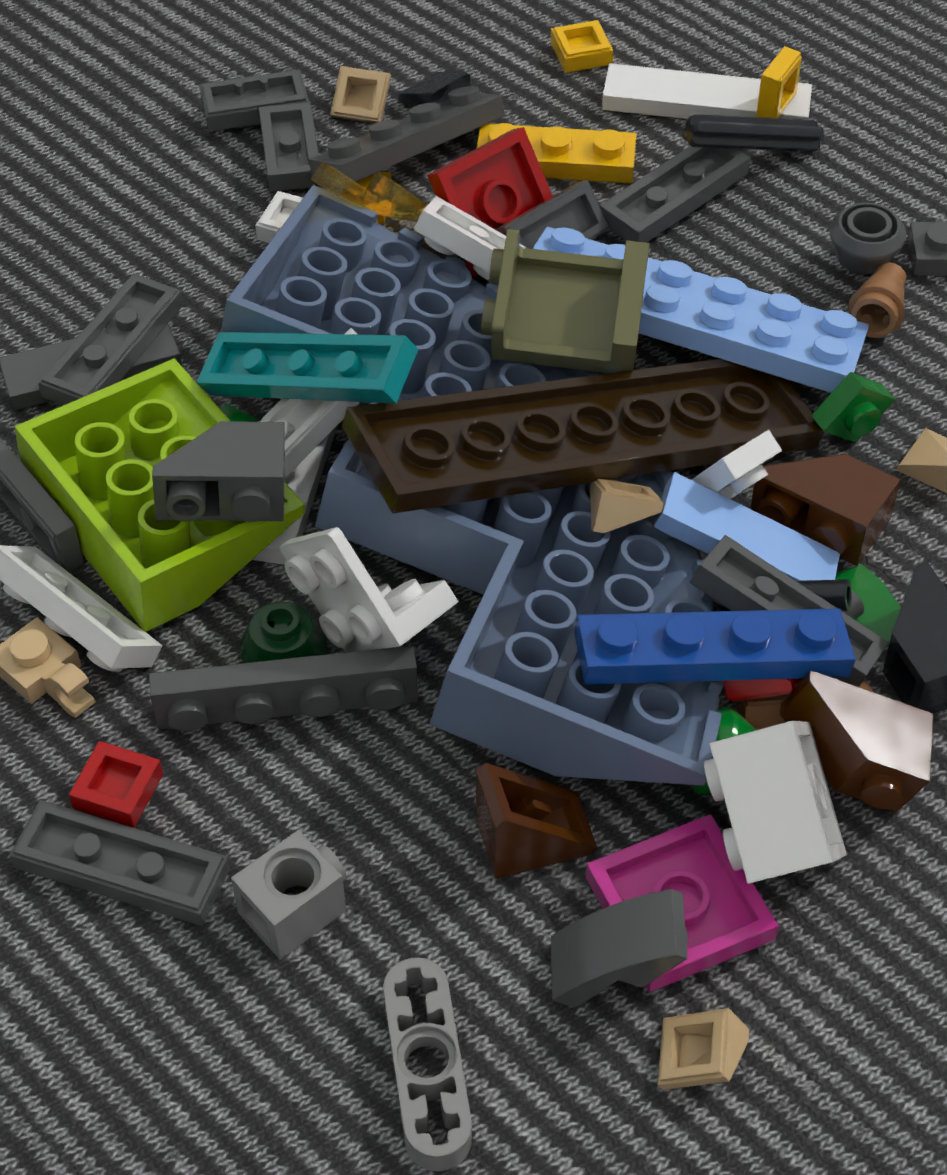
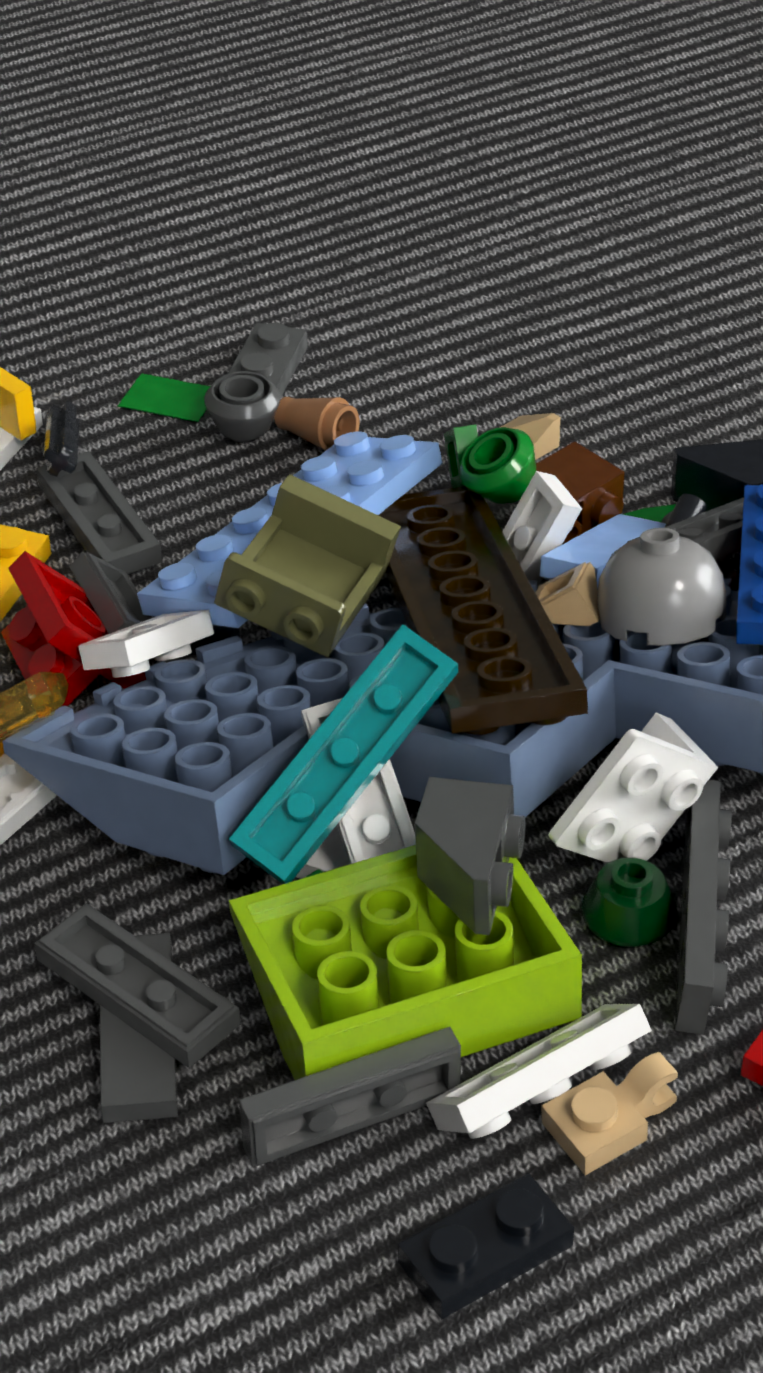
camera: 75 degrees left, 10 degrees down
(629, 560) = (661, 589): none -> light grey cylinder
(818, 423) = (499, 465): none -> green cone
(892, 190) = (166, 397): none -> green sticker

